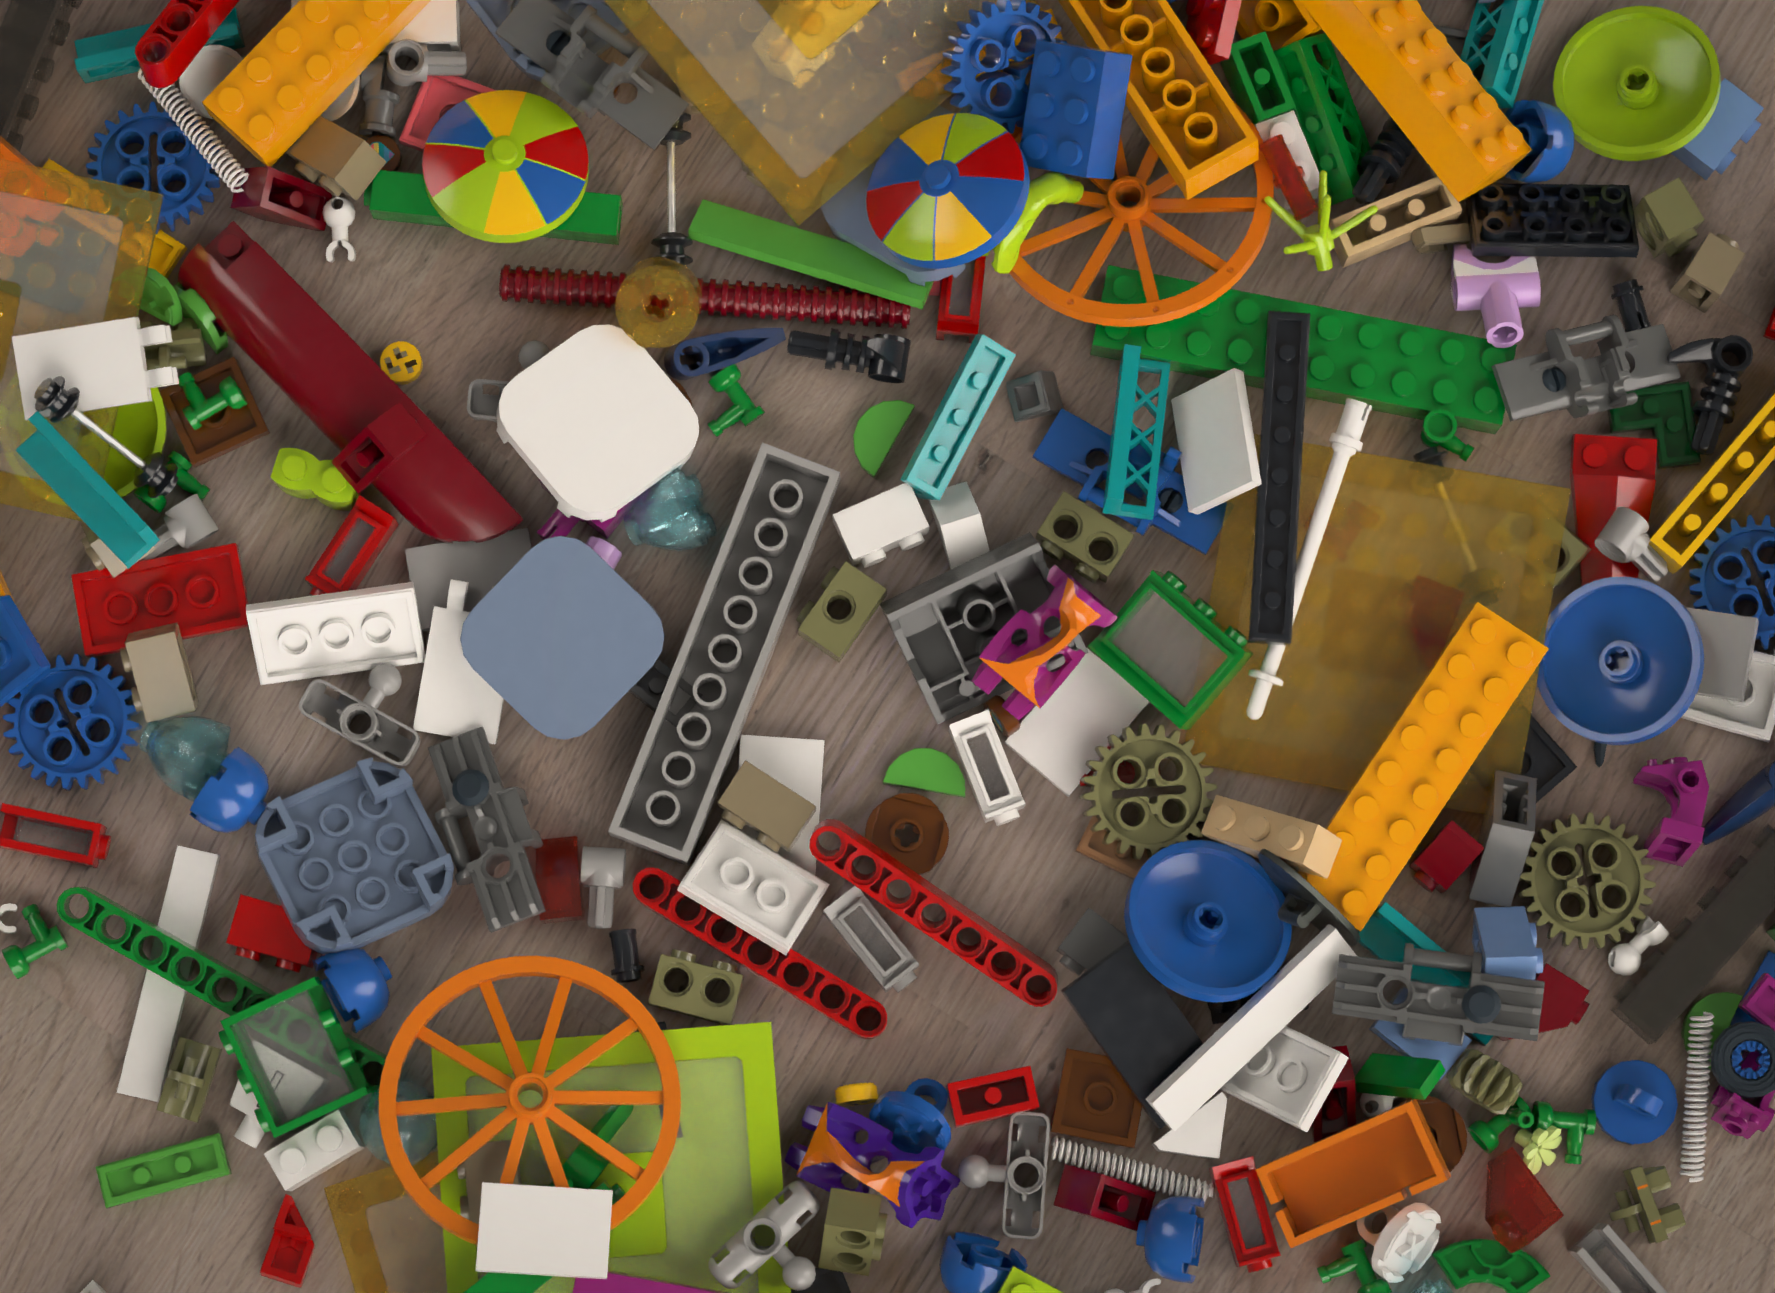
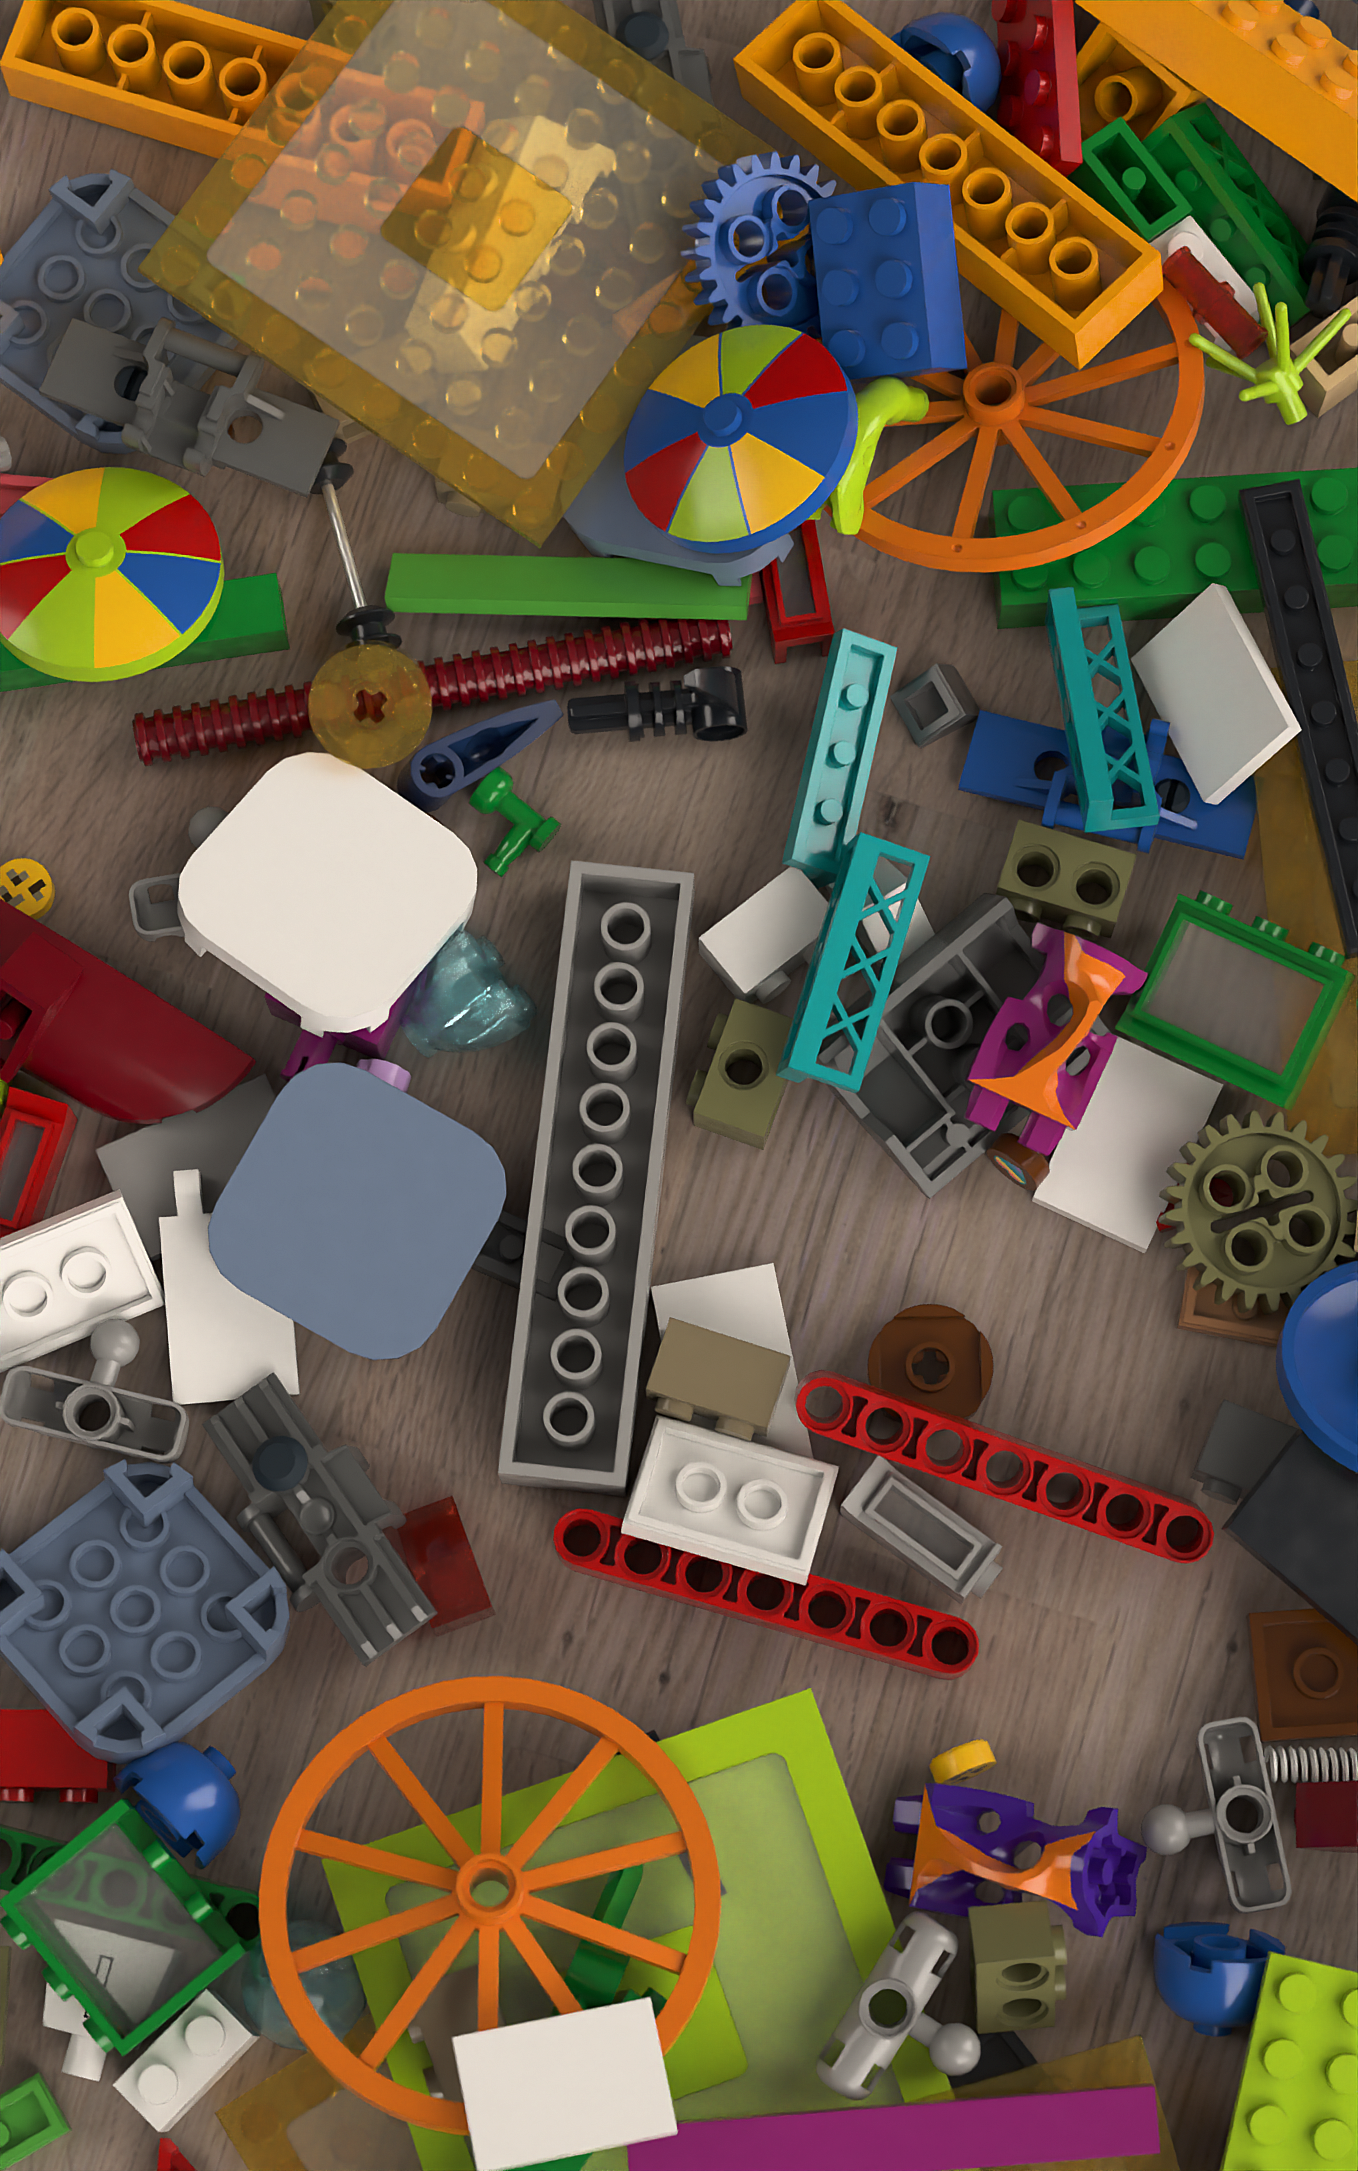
camera: 10 degrees left, 5 degrees down
(602, 873) = (505, 1540): light grey axle -> none
(625, 956) = (570, 1650): black pin -> none
(693, 999) = (686, 1688): olive brick -> none
(878, 432) = (730, 811): bright green tile -> none
(913, 1119) = (1057, 1773): blue tile -> none
(914, 550) = (830, 957): none -> teal fence
(926, 771) = (933, 1269): bright green tile -> none
(987, 768) = (1018, 1241): white window -> none
(992, 1096) = (1162, 1711): red brick -> none

